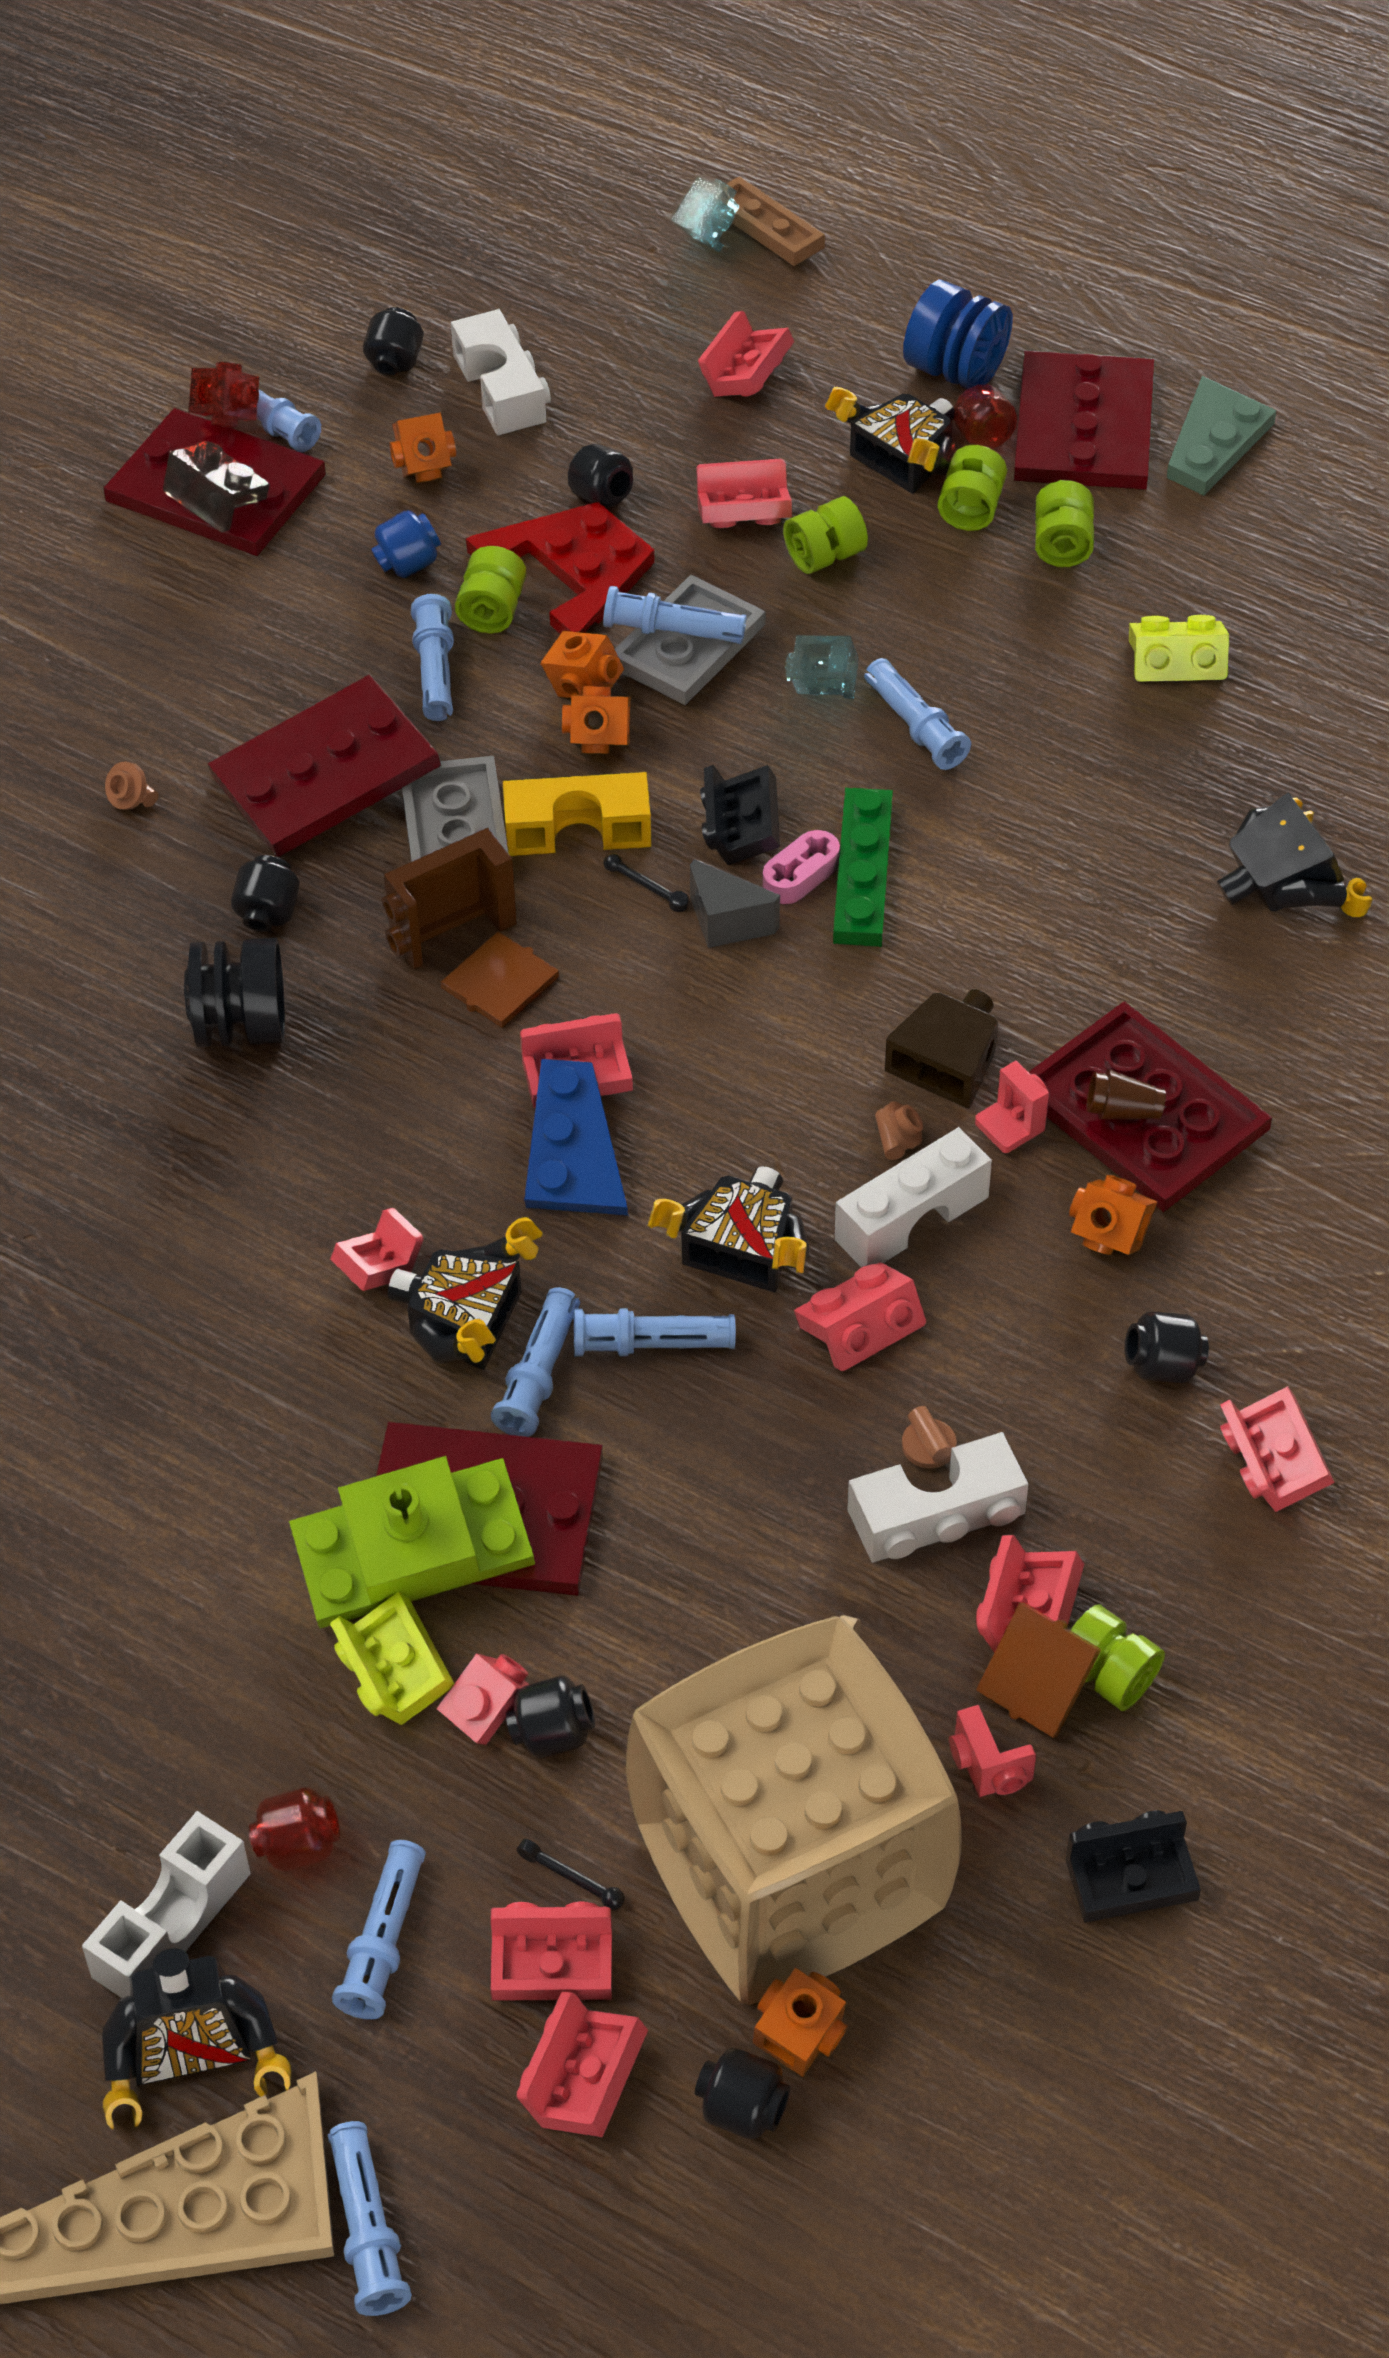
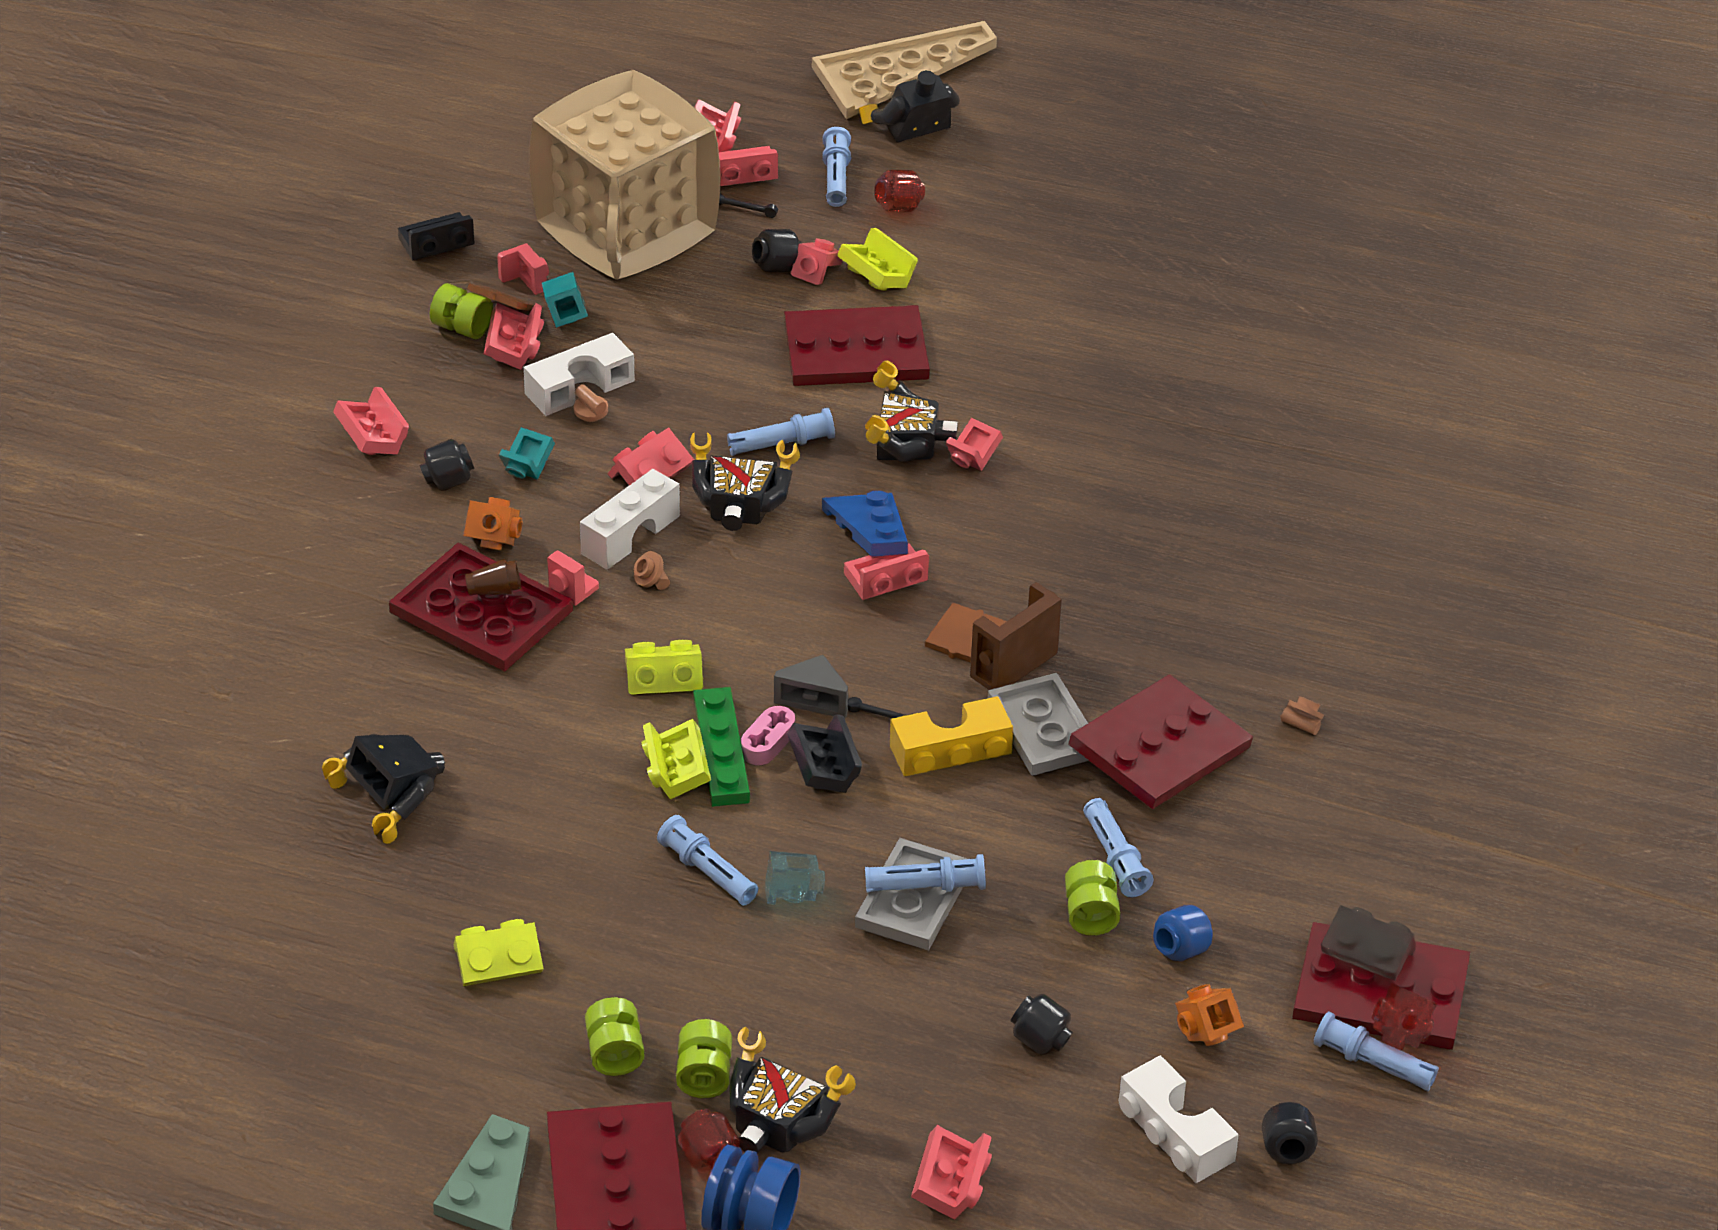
camera: 165 degrees right, 10 degrees down
(196, 1880) = (946, 155): white arch -> none
(236, 992) = (1138, 555): black wheel -> none
(265, 893) = (1158, 644): black head -> none
(371, 2243) = (794, 66): light blue pin -> none
(411, 1536) = (885, 298): lime brick -> none
(531, 1379) = (850, 400): light blue pin -> none
(581, 661) = (988, 835): orange brick -> none
(584, 550) = (1022, 964): red wing -> none
(615, 715) = (947, 804): orange brick -> none
(743, 492) = (906, 1023): coral bracket -> none
(827, 534) = (823, 992): lime wheel -> none
(908, 976) = (664, 668): none -> neon yellow bracket
(926, 838) = (676, 758): none -> neon yellow bracket
(936, 1645) = (564, 299): none -> teal brick
(945, 1046) = (628, 616): dark brown torso -> none
(1046, 1347) = (527, 454): none -> teal bracket

